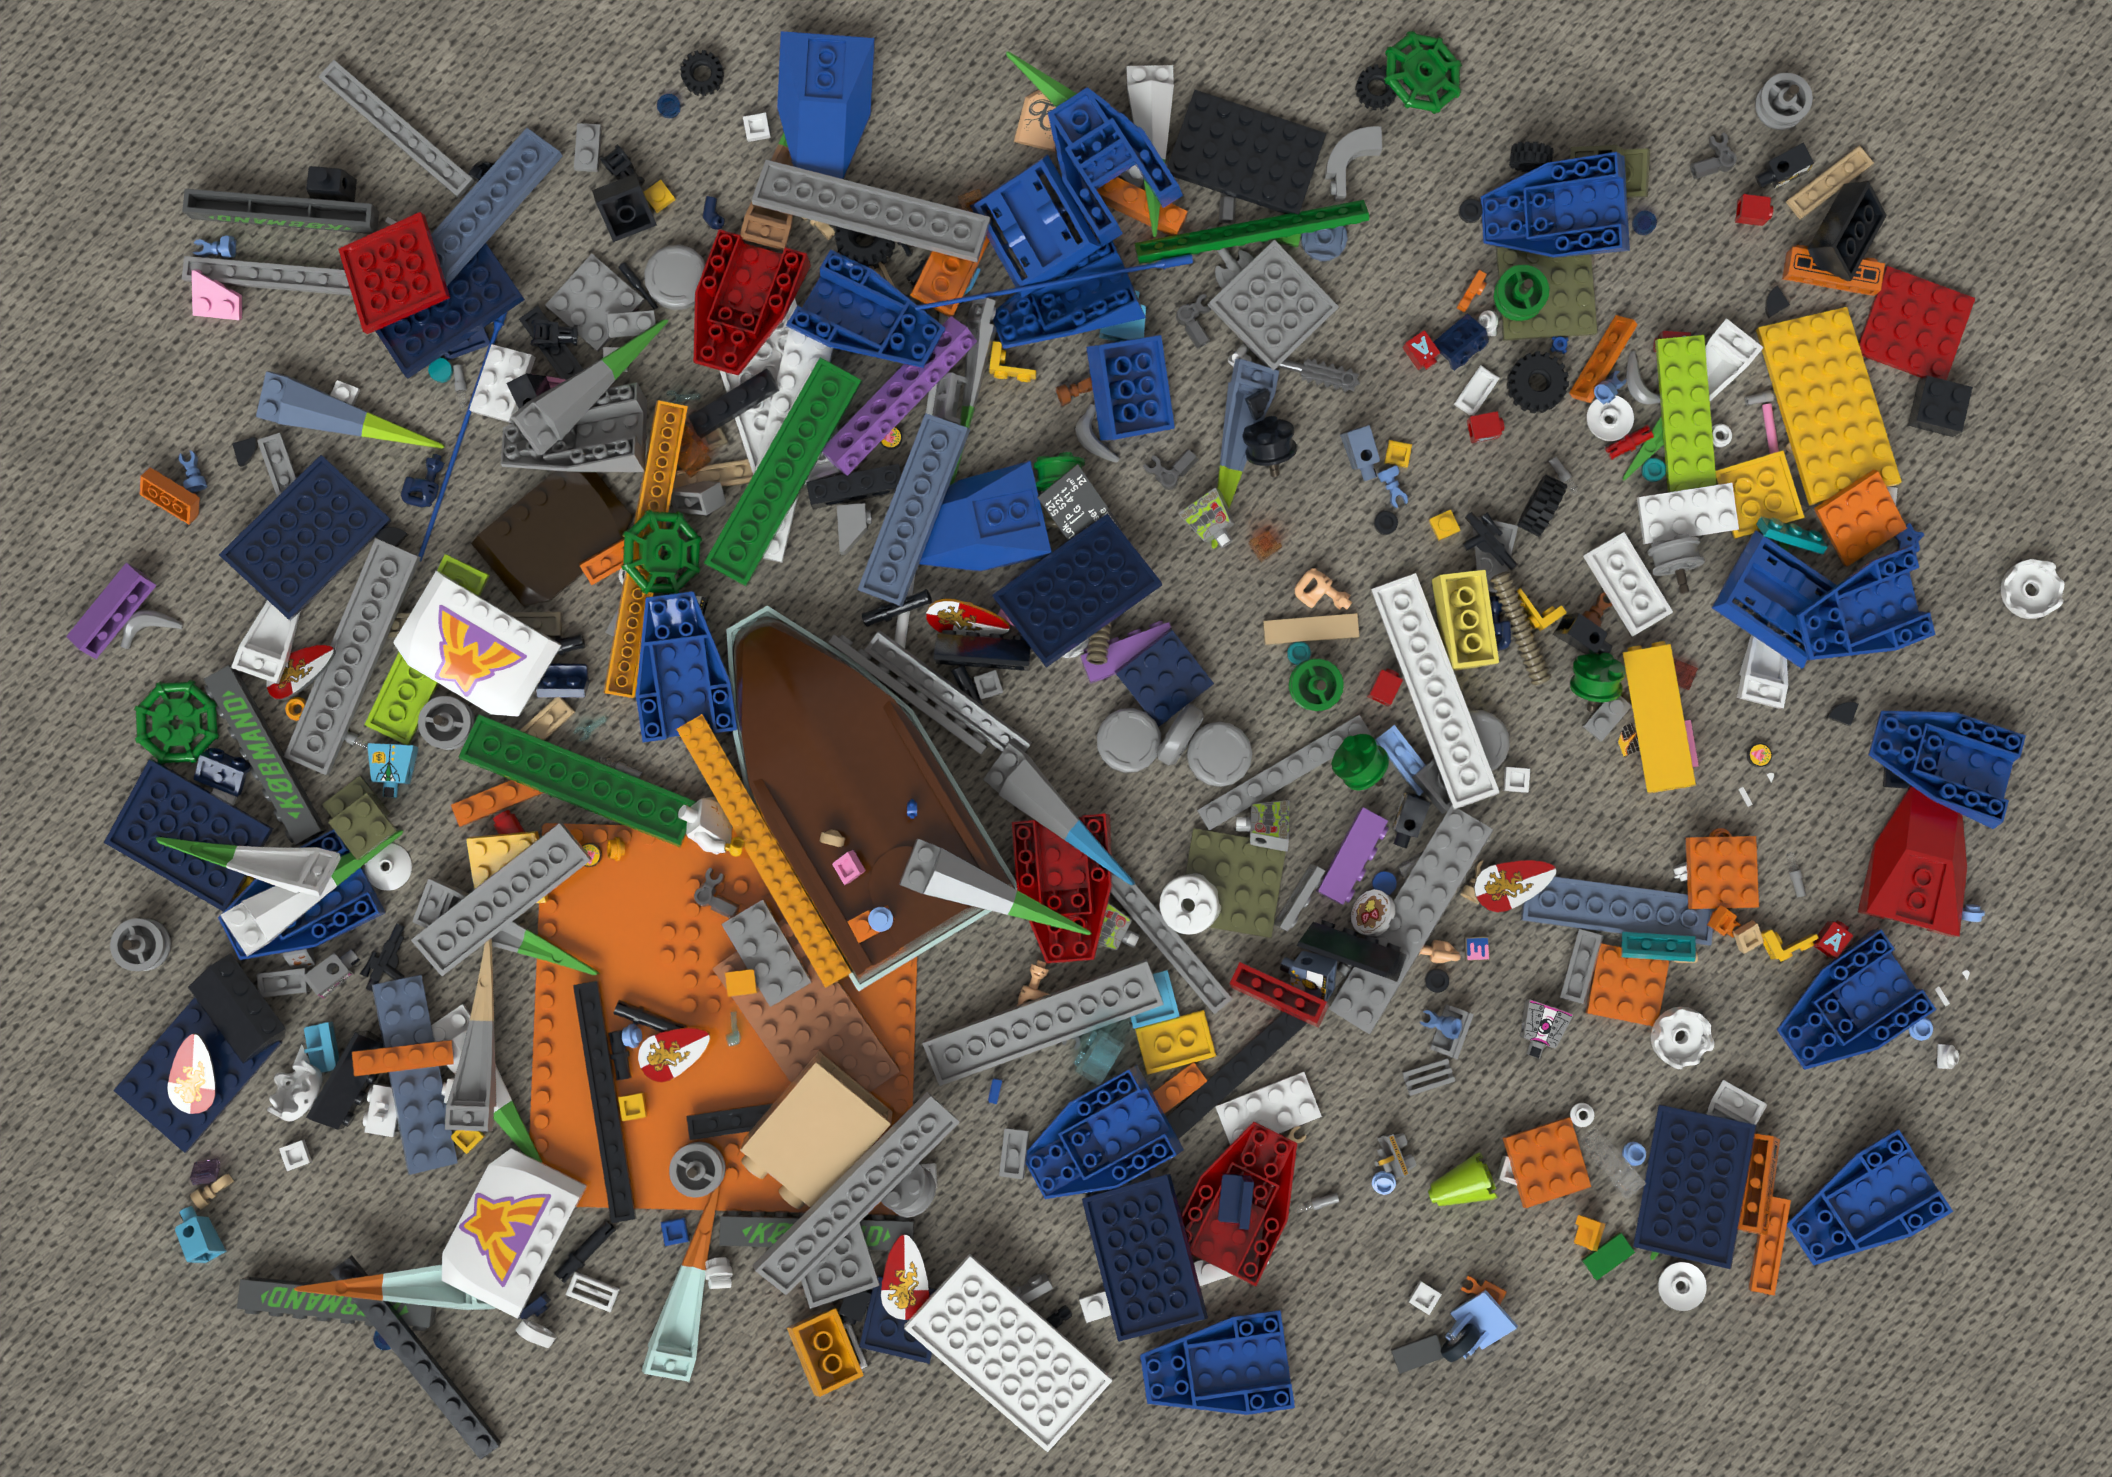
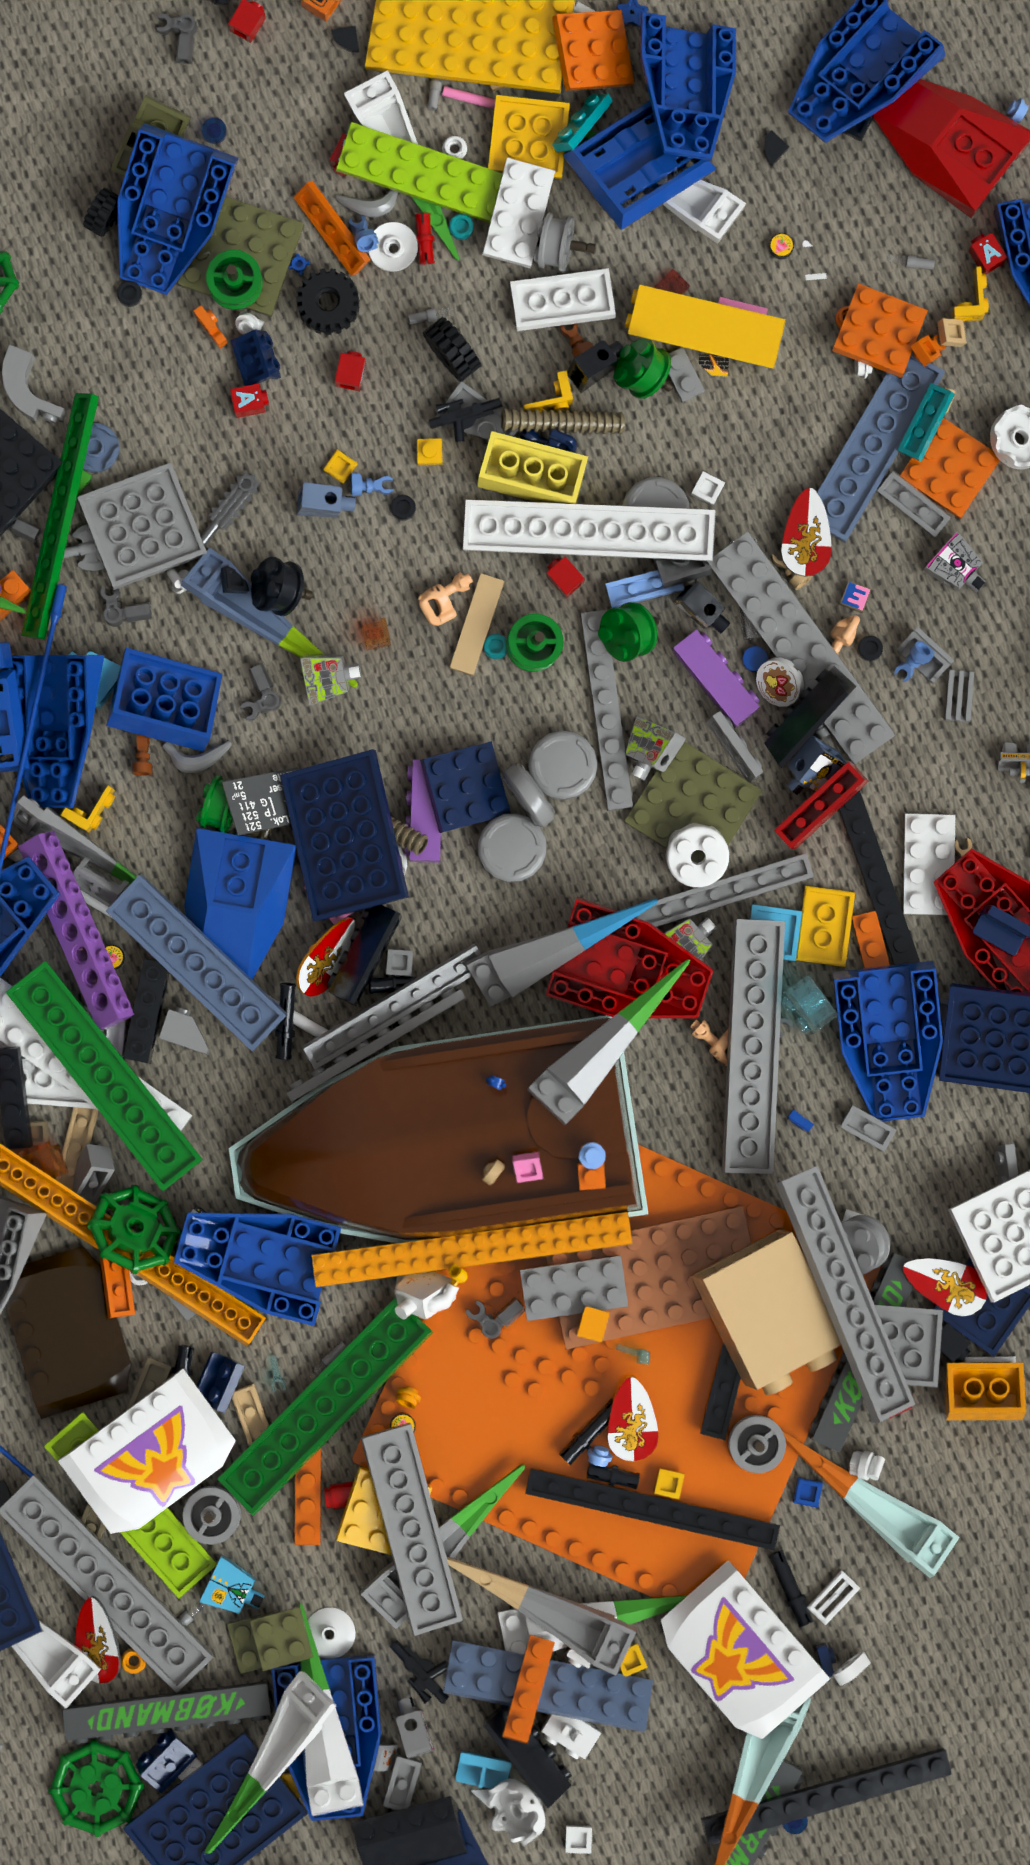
camera: 65 degrees left, 0 degrees up
(1476, 391) = (310, 364): white tile -> none

